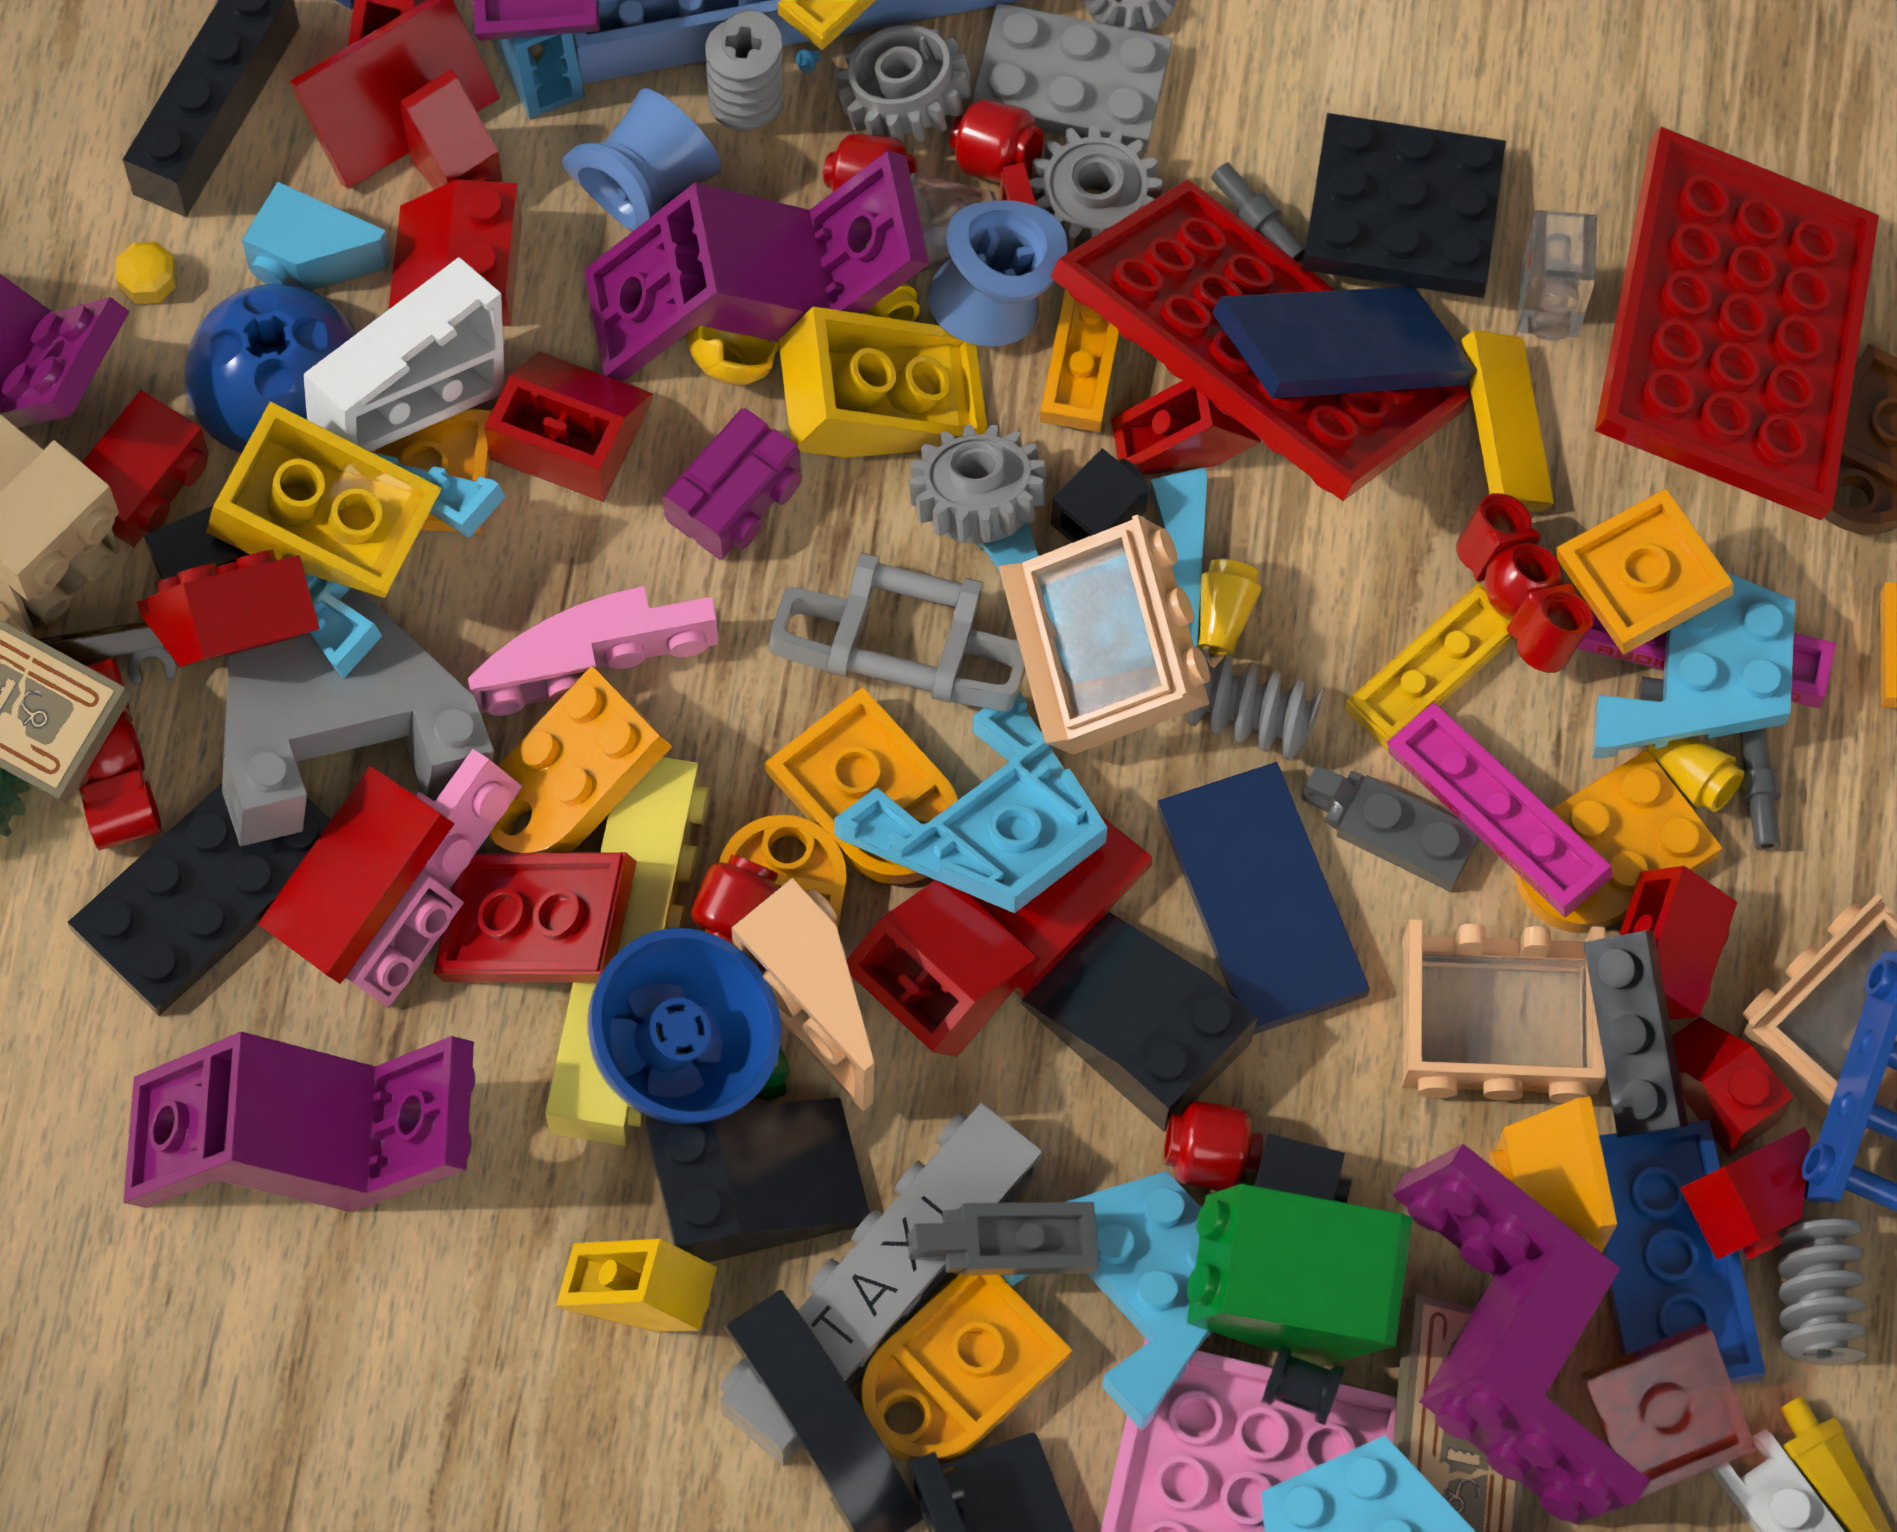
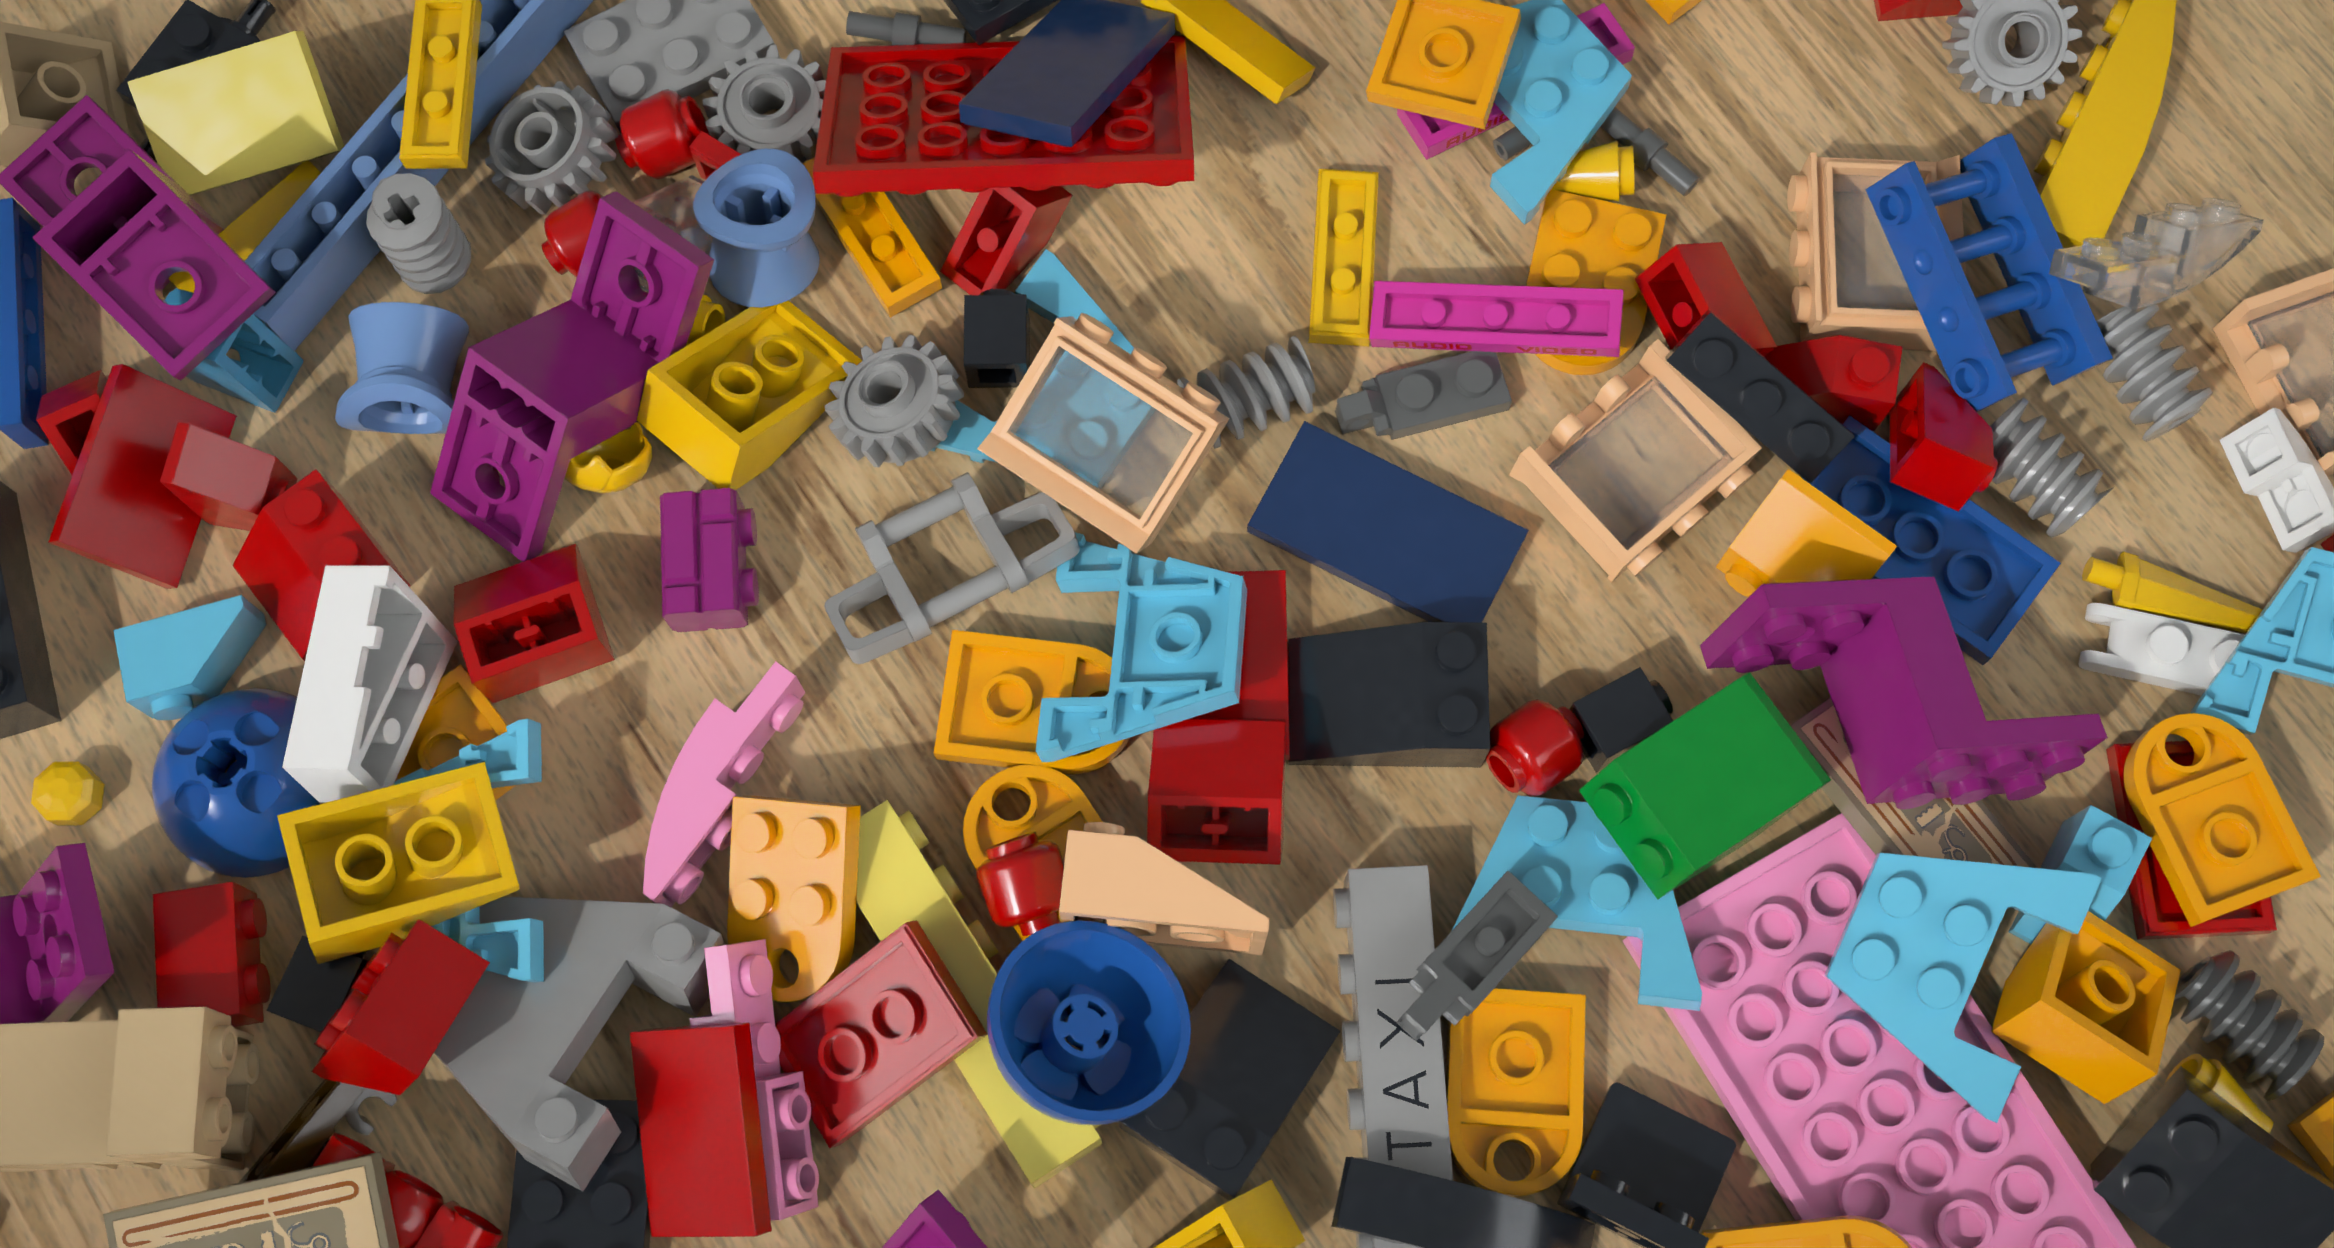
camera: 40 degrees left, 5 degrees up
(807, 60) = (455, 192): dark azure piece -> none
(1226, 603) = (1156, 329): yellow cone -> none
(1303, 1385) = (1779, 867): black bush -> none
(1524, 583) = (1357, 139): red piece -> none
(1670, 1408) = (2032, 646): clear red plate -> none

